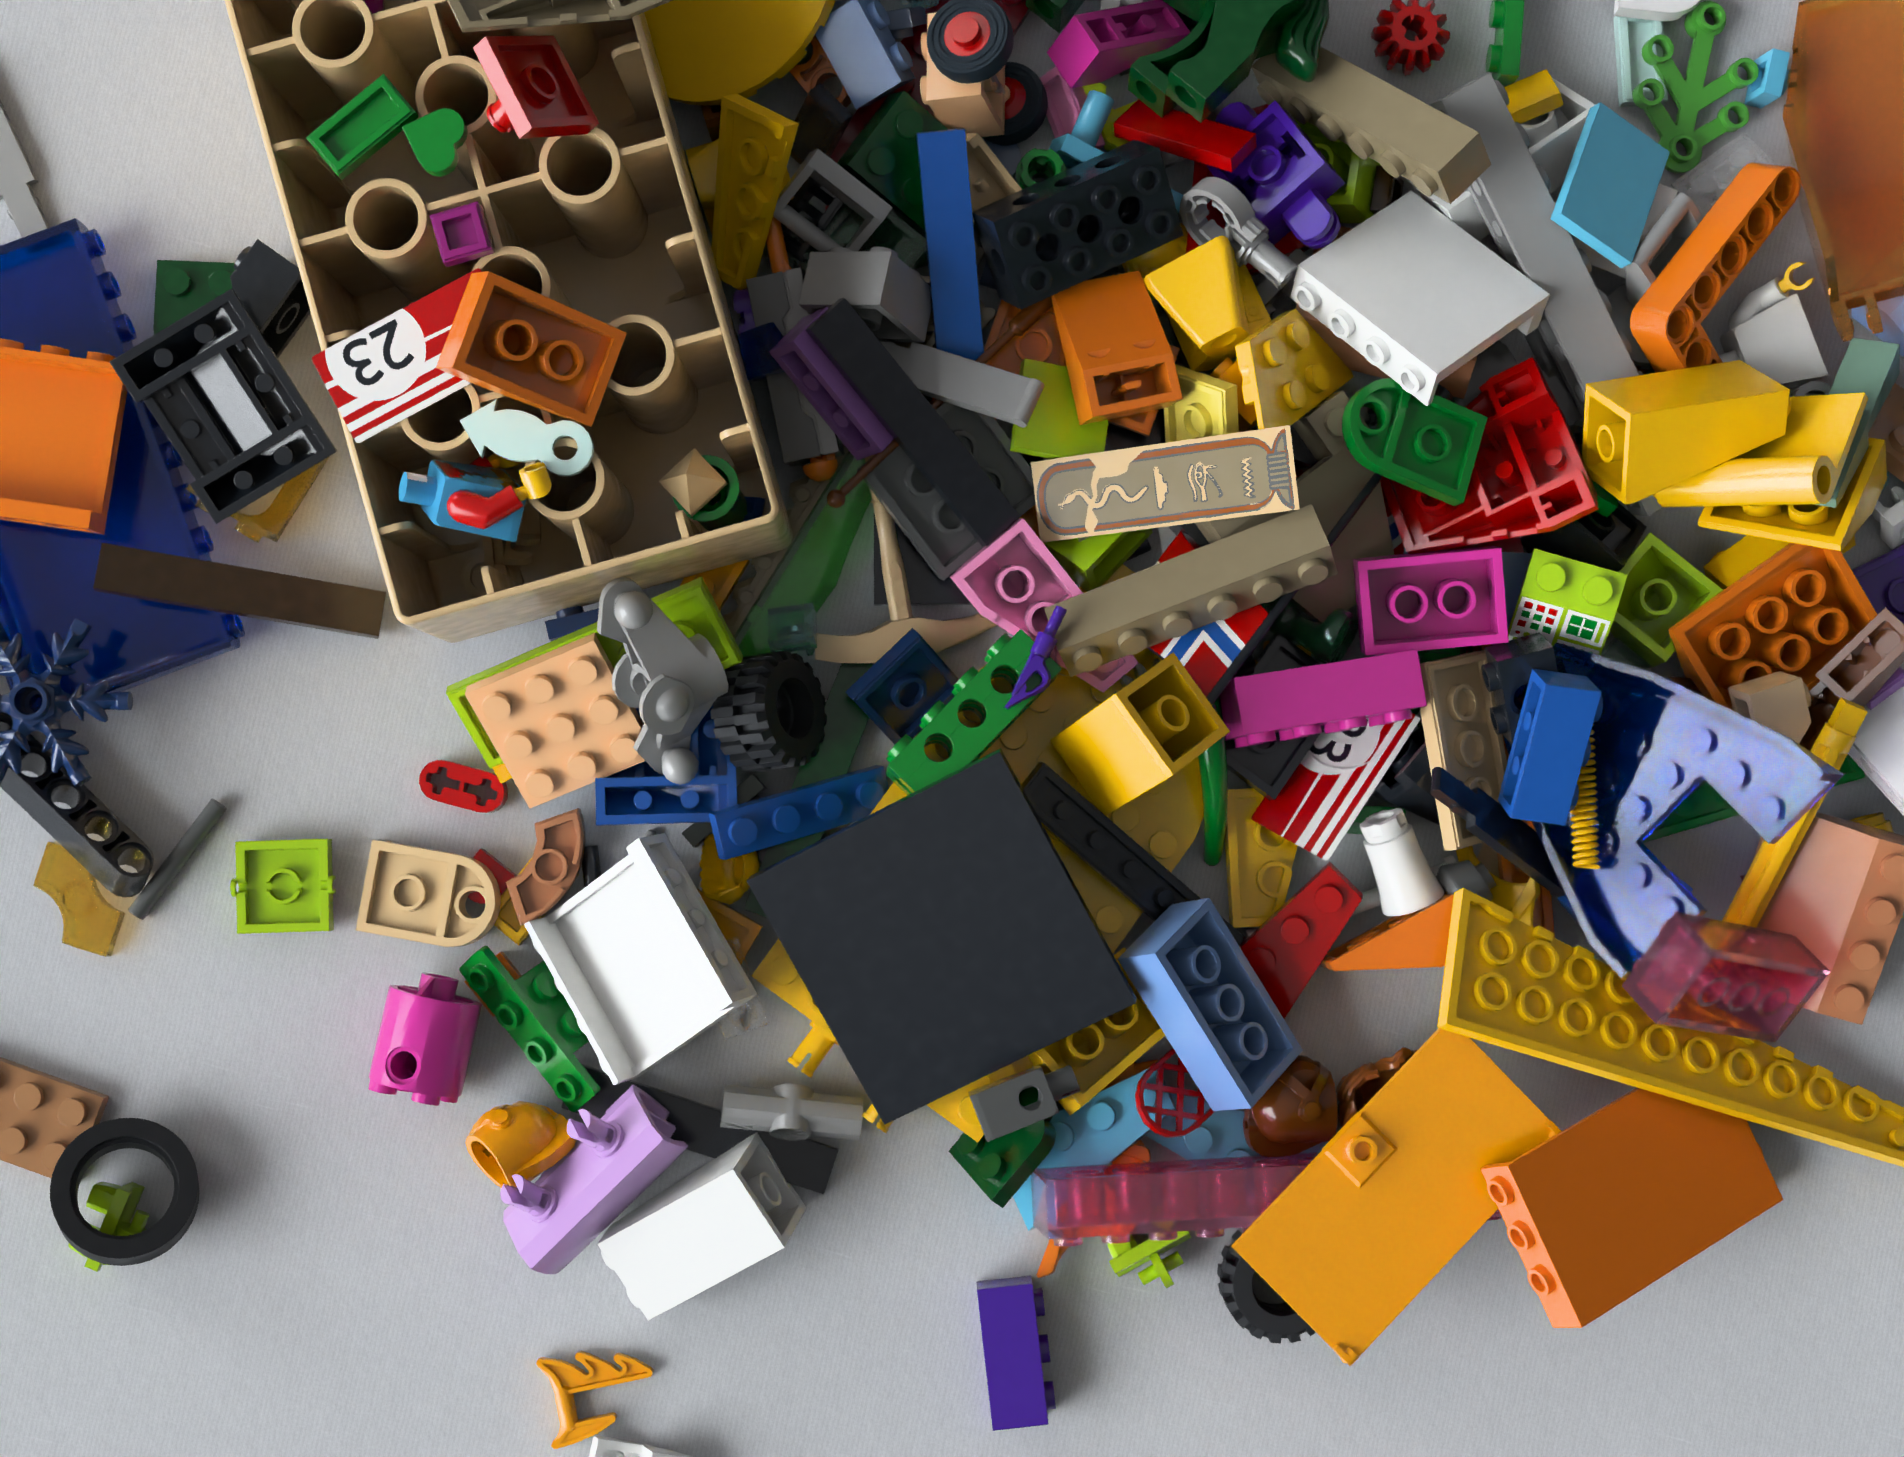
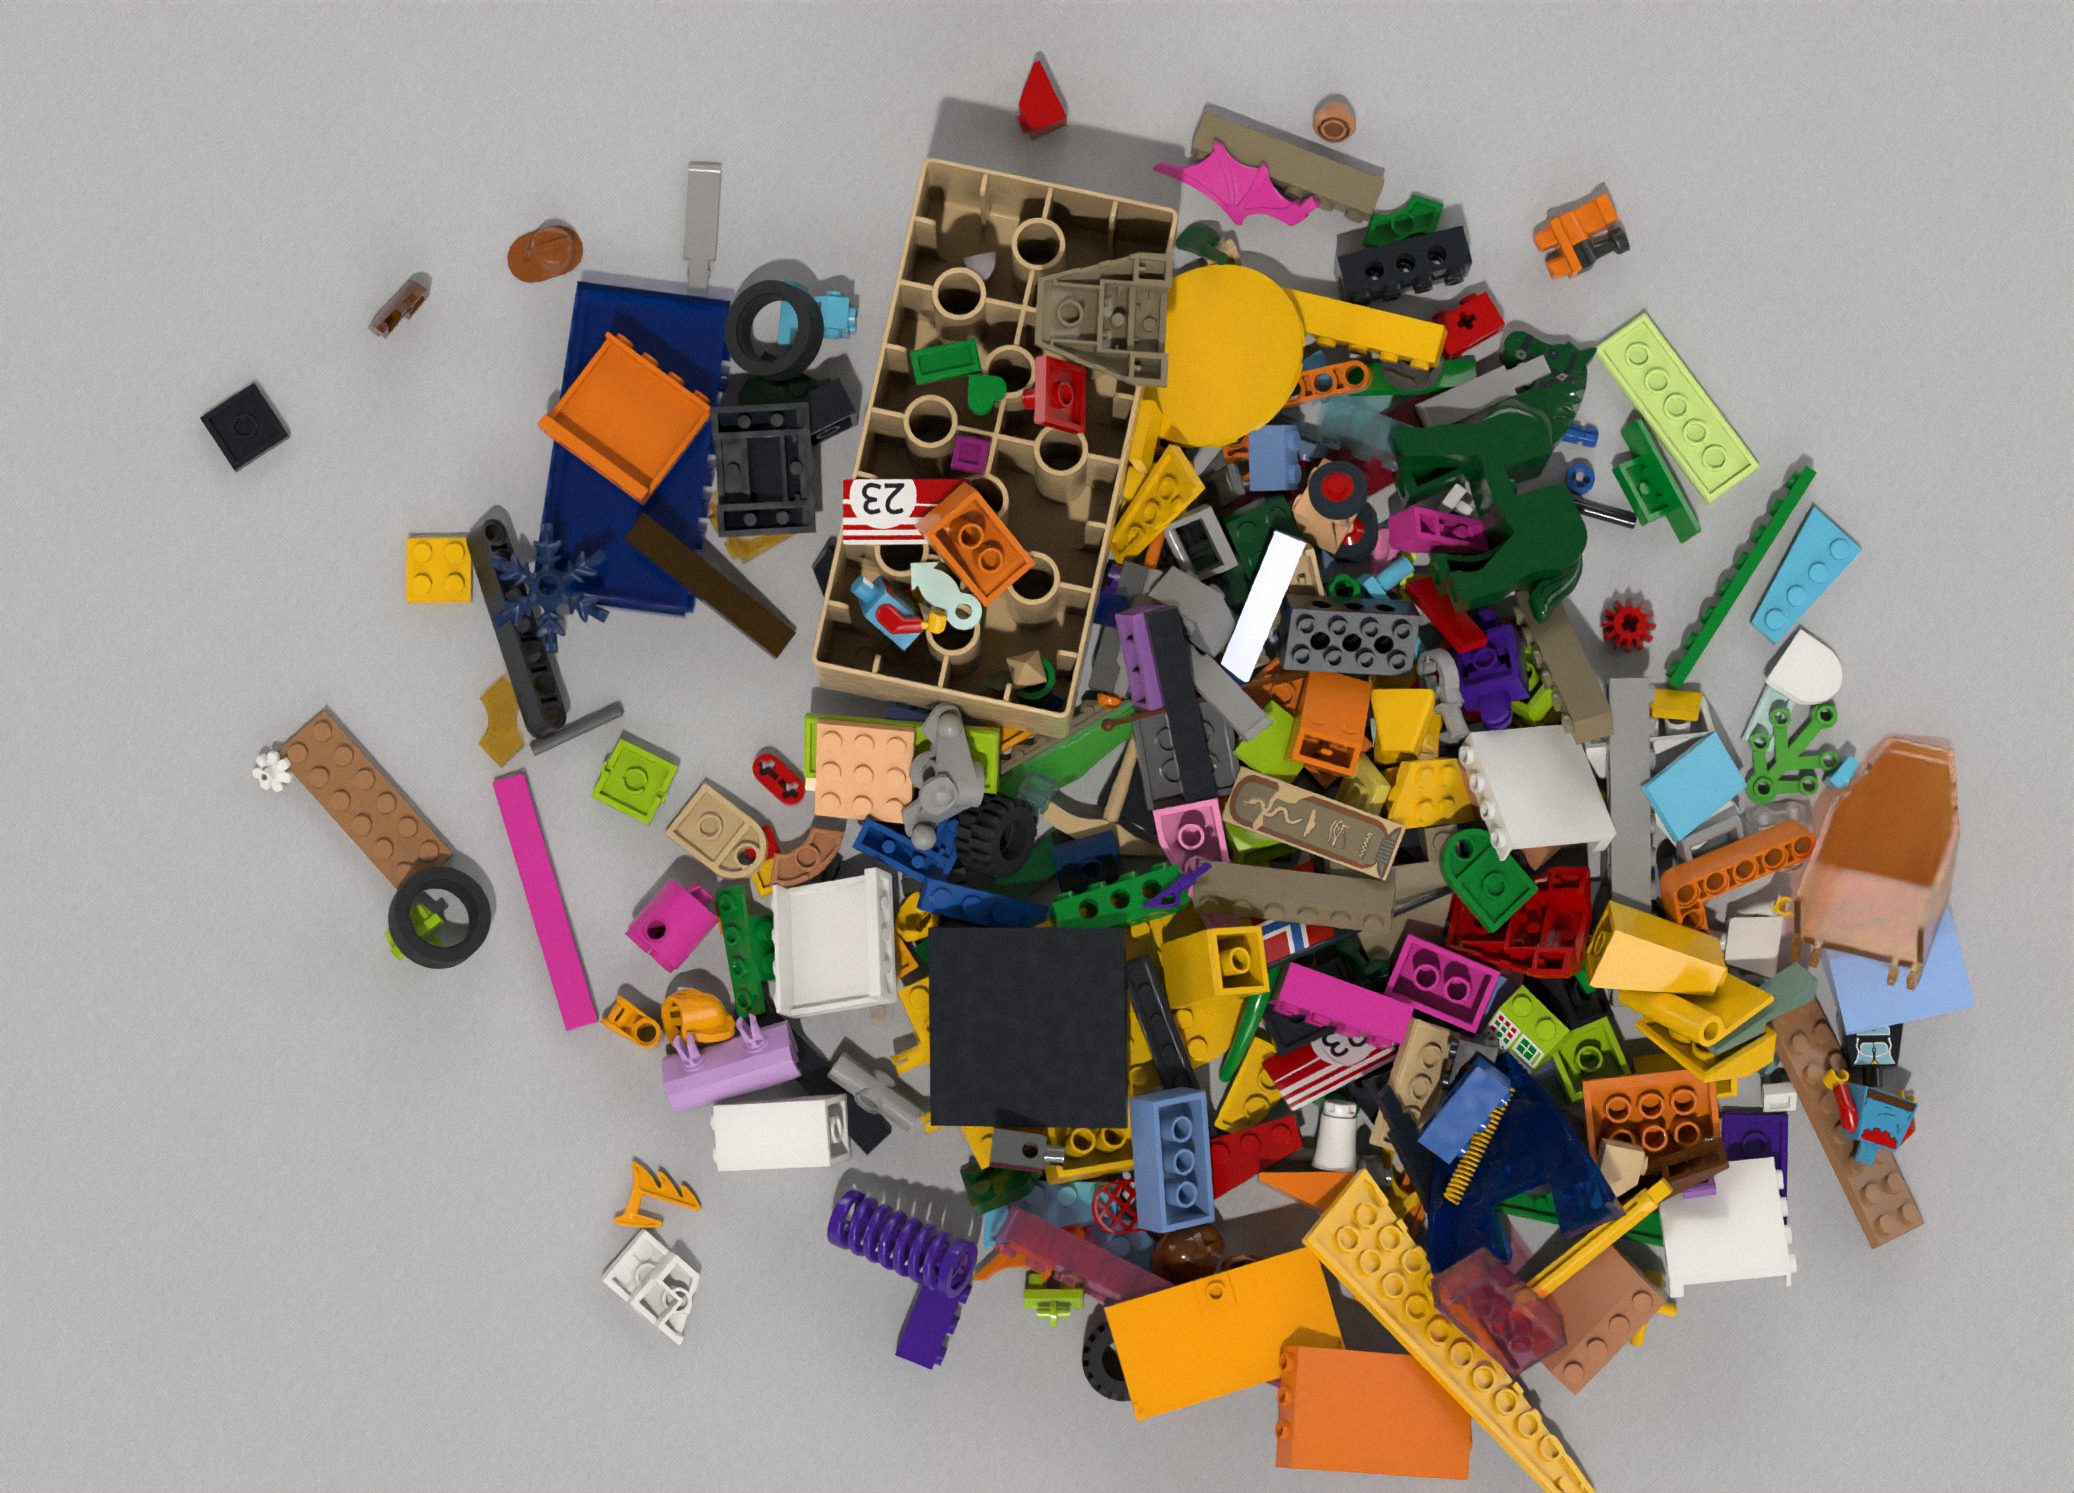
camera: 30 degrees right, 5 degrees down
(102, 232) = (740, 321): none -> black tyre
(221, 176) = (837, 315): none -> medium azure tile
(253, 1094) = (545, 902): none -> dark pink tile
(436, 1189) = (629, 1021): none -> light orange piece
(664, 518) = (997, 680): none -> sand green sticker
(687, 108) = (1145, 436): none -> yellow tile
(928, 1283) = (905, 1240): none -> dark purple piece

